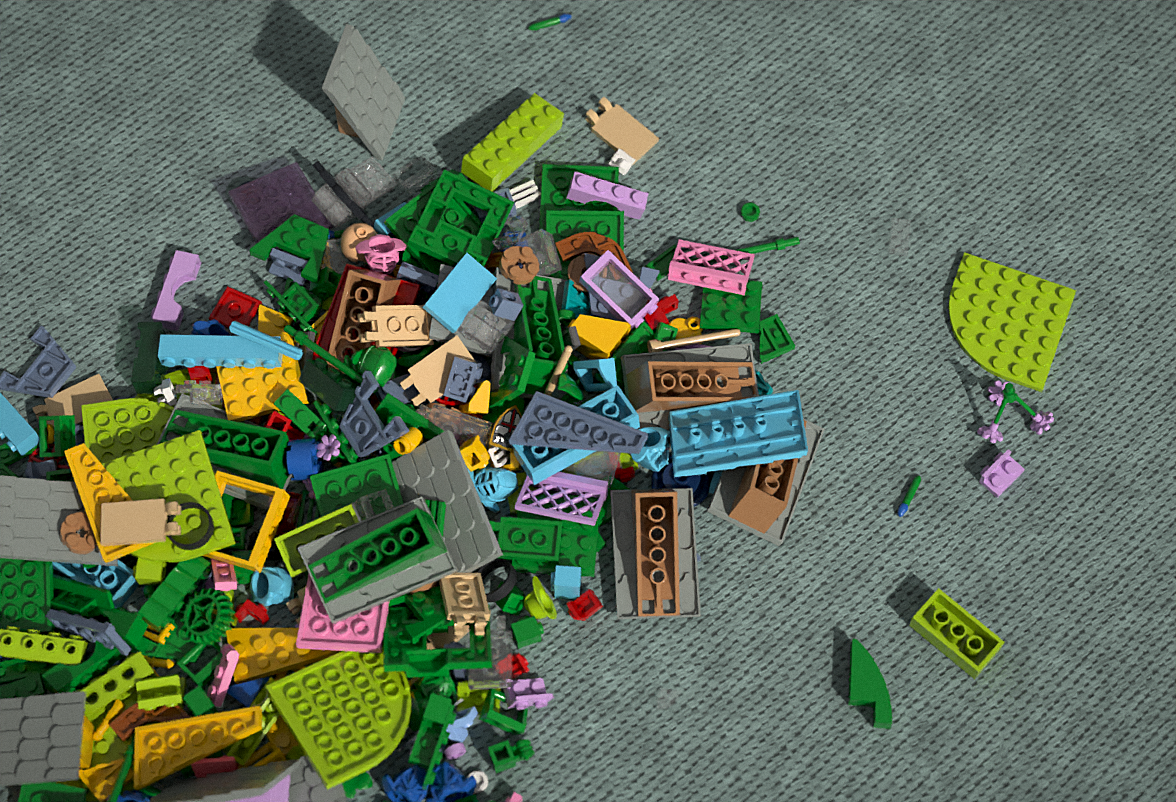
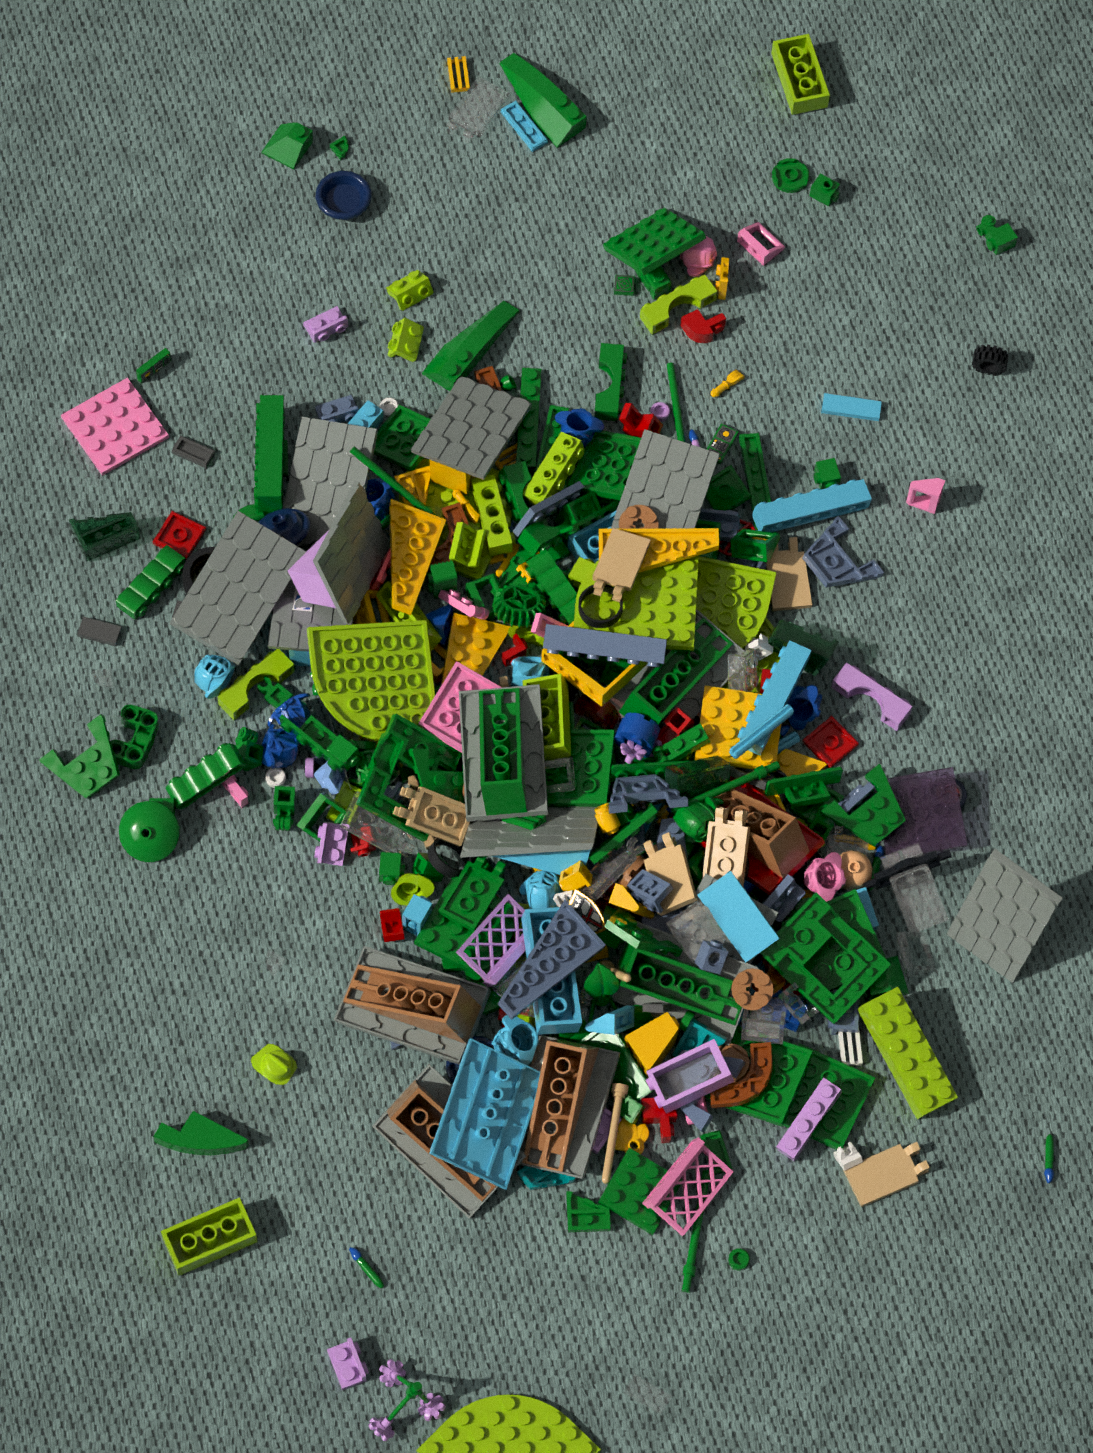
camera: 110 degrees right, 0 degrees up
(231, 505) = (606, 644): none -> sand blue brick
(763, 655) = (274, 1064): none -> lime piece

